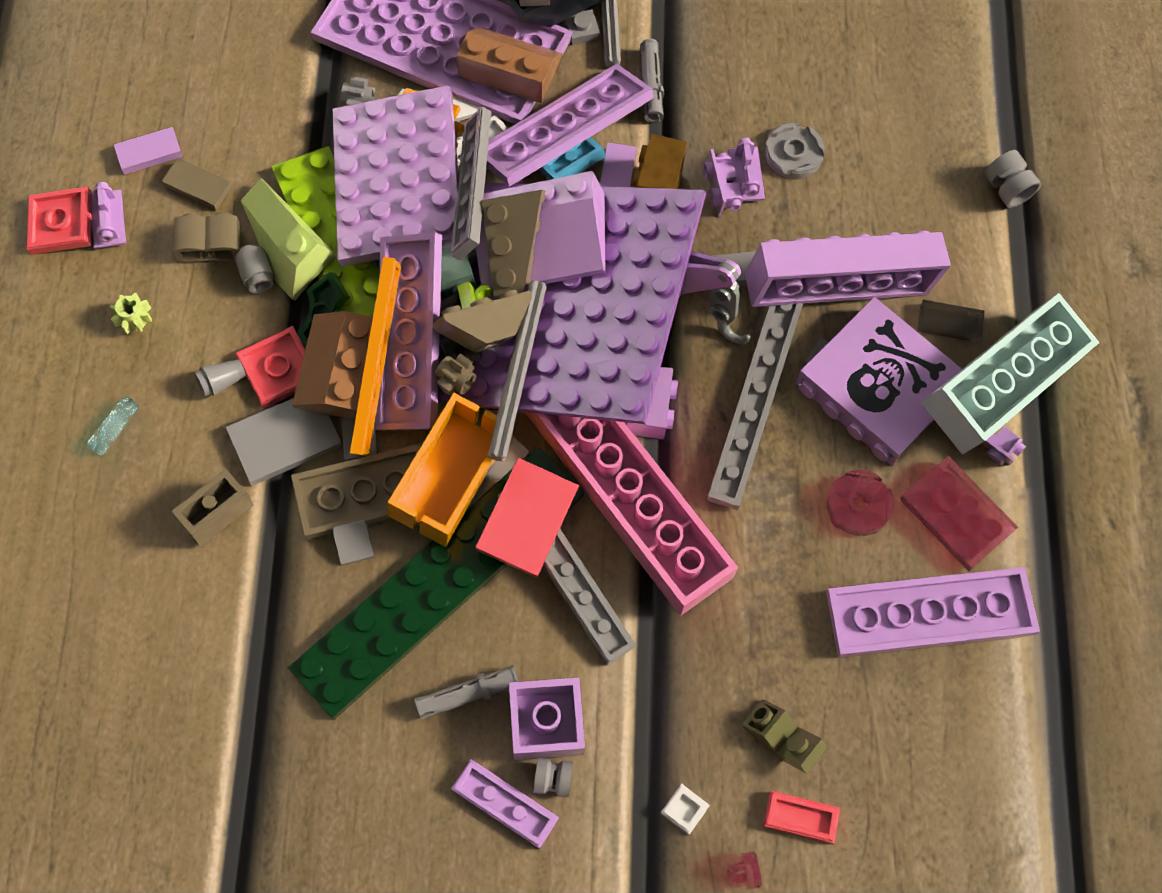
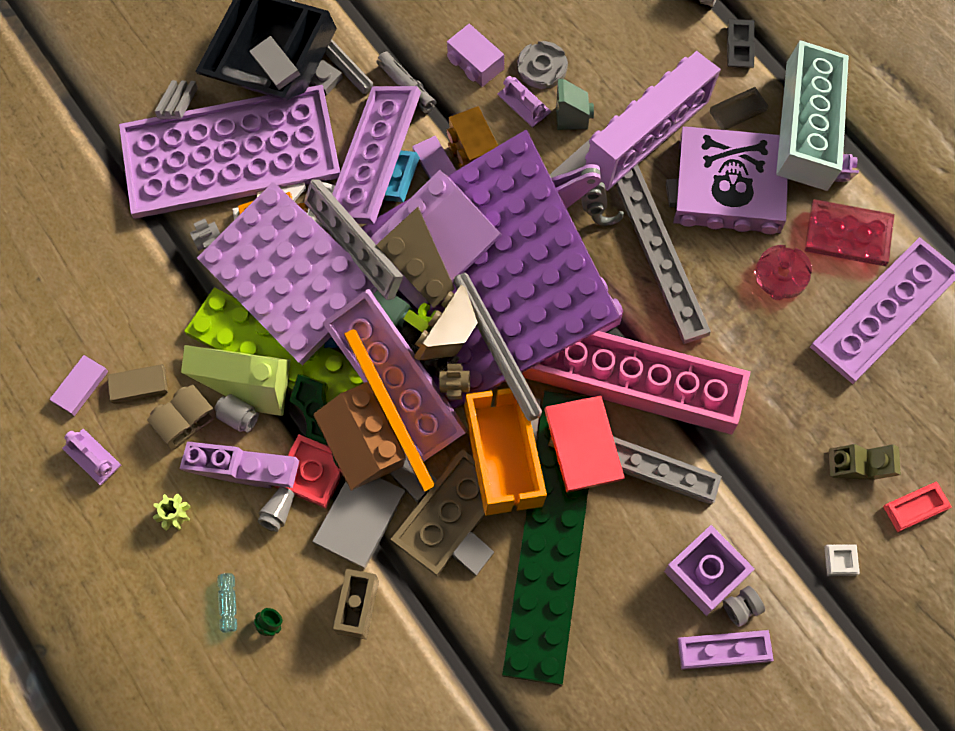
camera: 30 degrees left, 0 degrees up
(59, 220) = (55, 484): coral tile -> none
(131, 467) = (268, 622): none -> dark green plate
(219, 315) = (239, 466): none -> lavender slope
(458, 695) = (635, 599): light grey pin -> none
(507, 63) = (299, 138): medium nougat slope -> none
(718, 172) = (505, 114): lavender hinge -> none
(735, 99) = (475, 55): none -> lavender brick
(751, 871) = (916, 567): clear pink tile -> none
(784, 206) = (572, 107): none -> sand green slope
(1006, 260) = (740, 43): none -> dark grey slope

